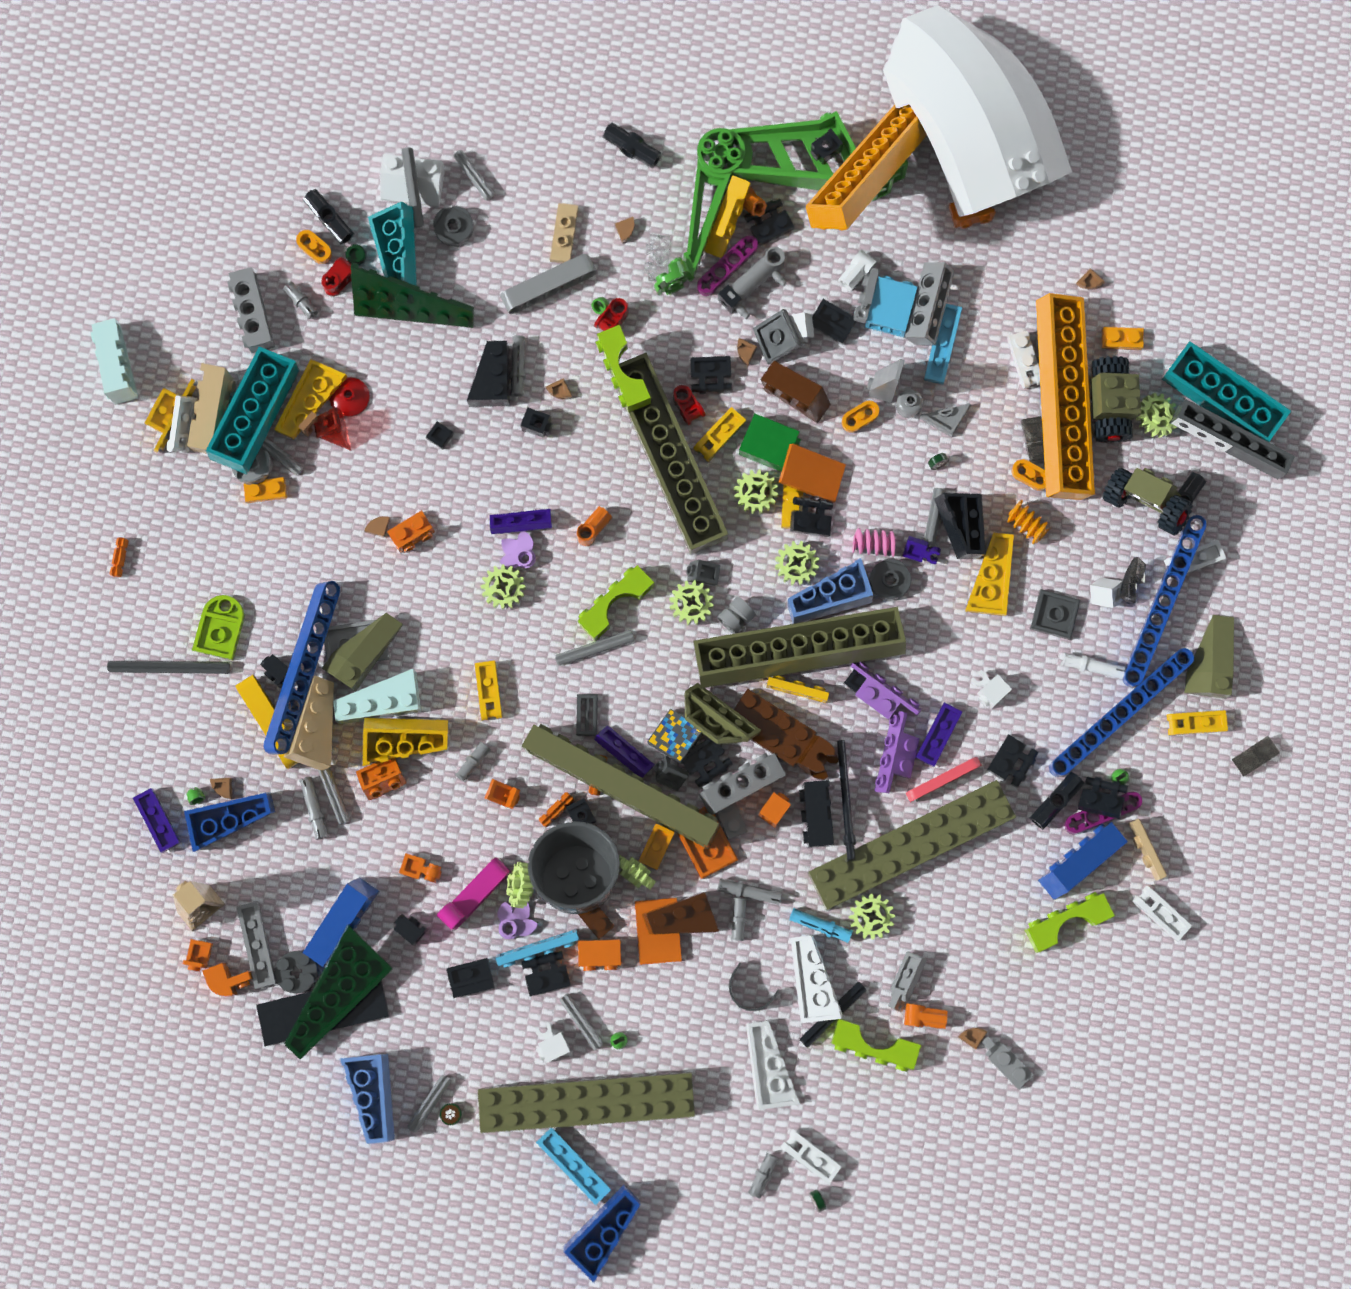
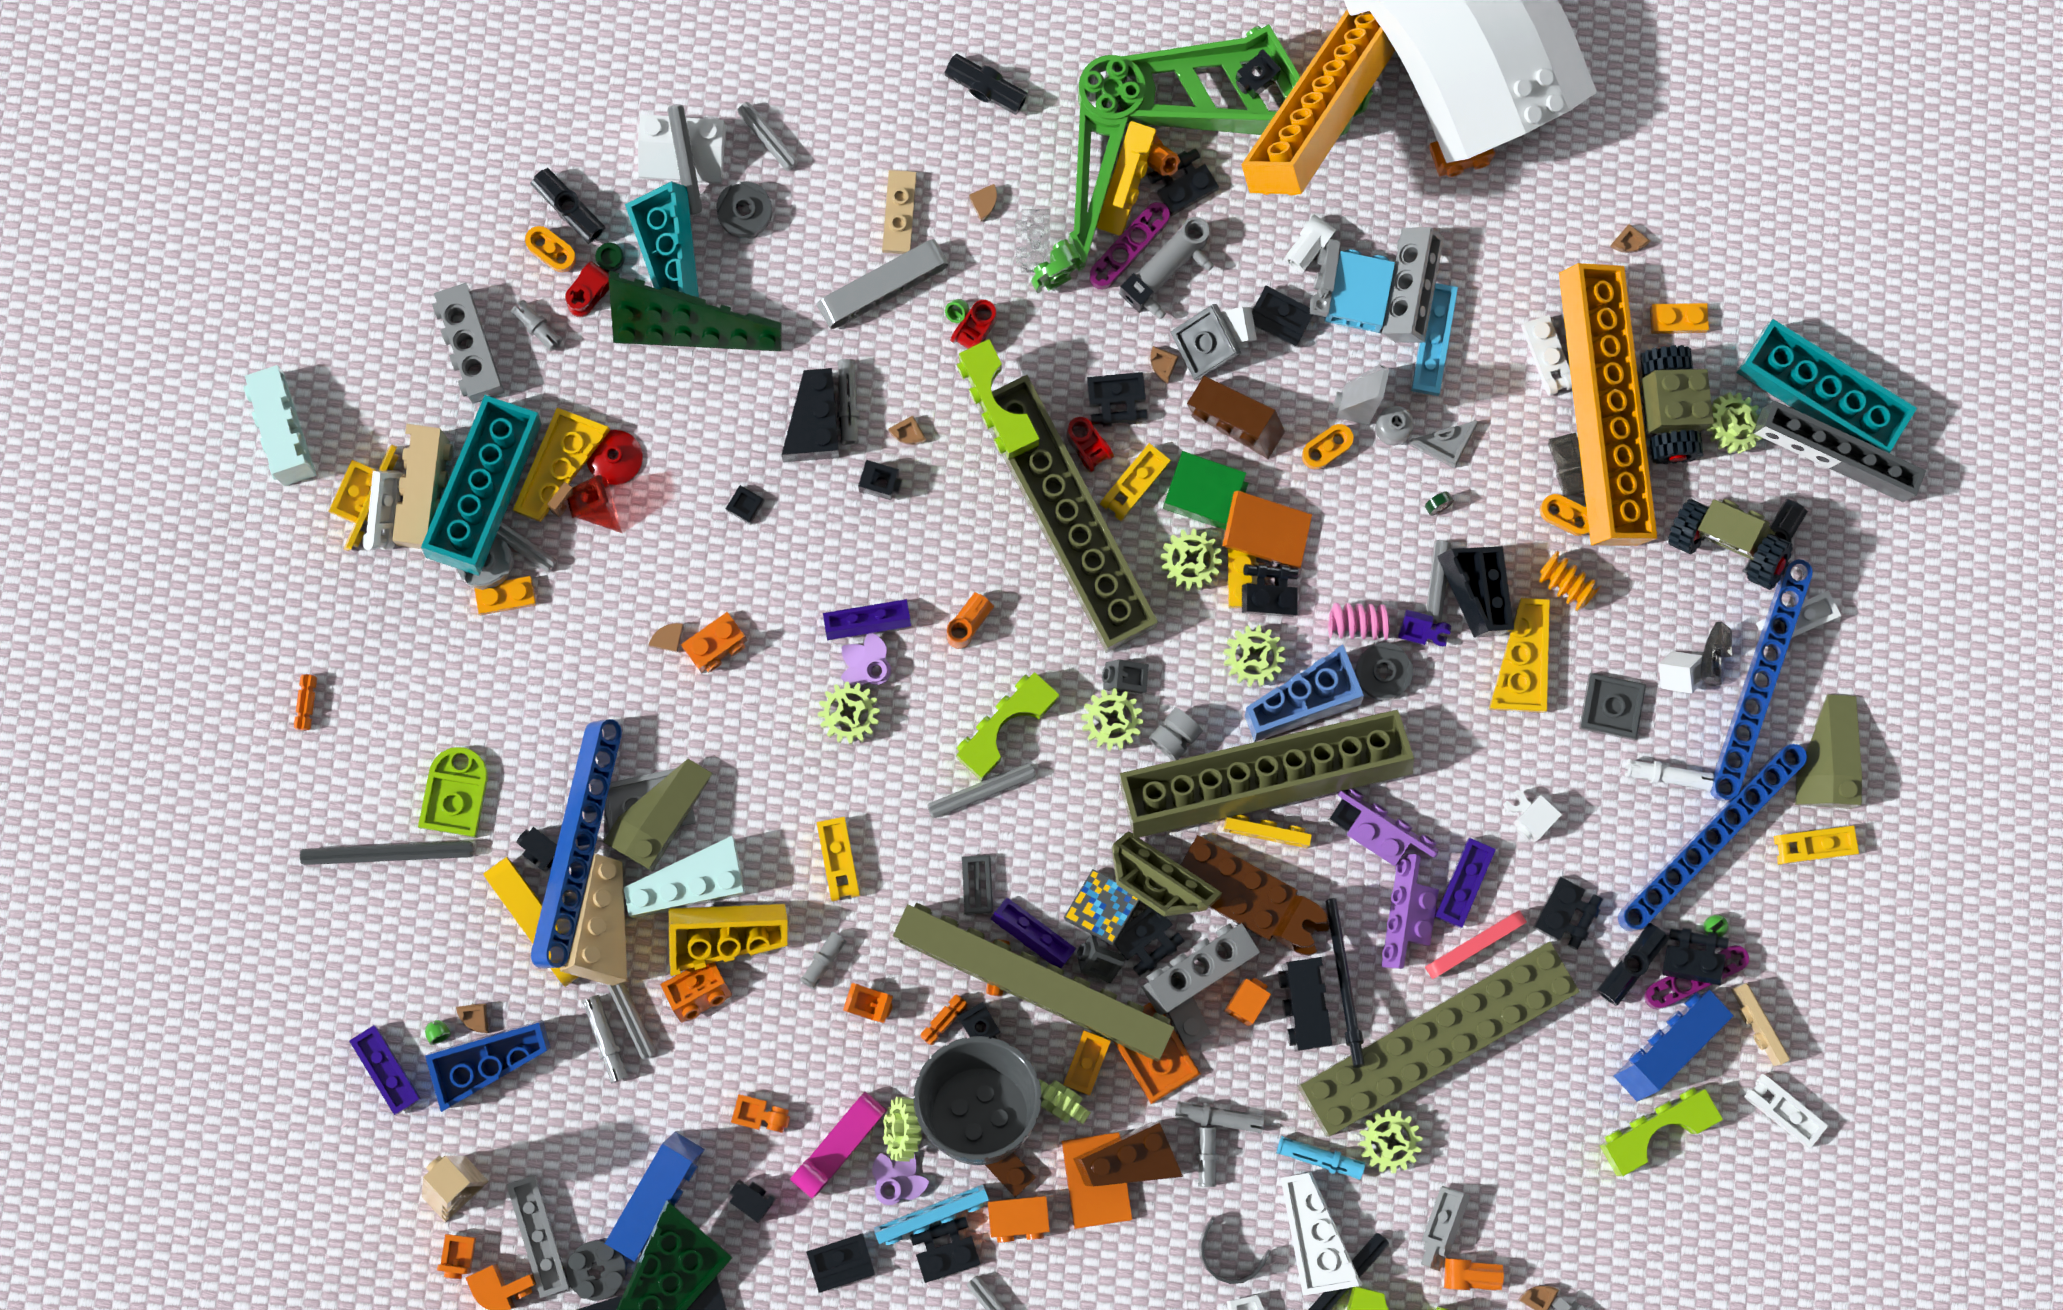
camera: 15 degrees left, 0 degrees up
(1255, 756) = (1898, 885): clear smoke slope -> none

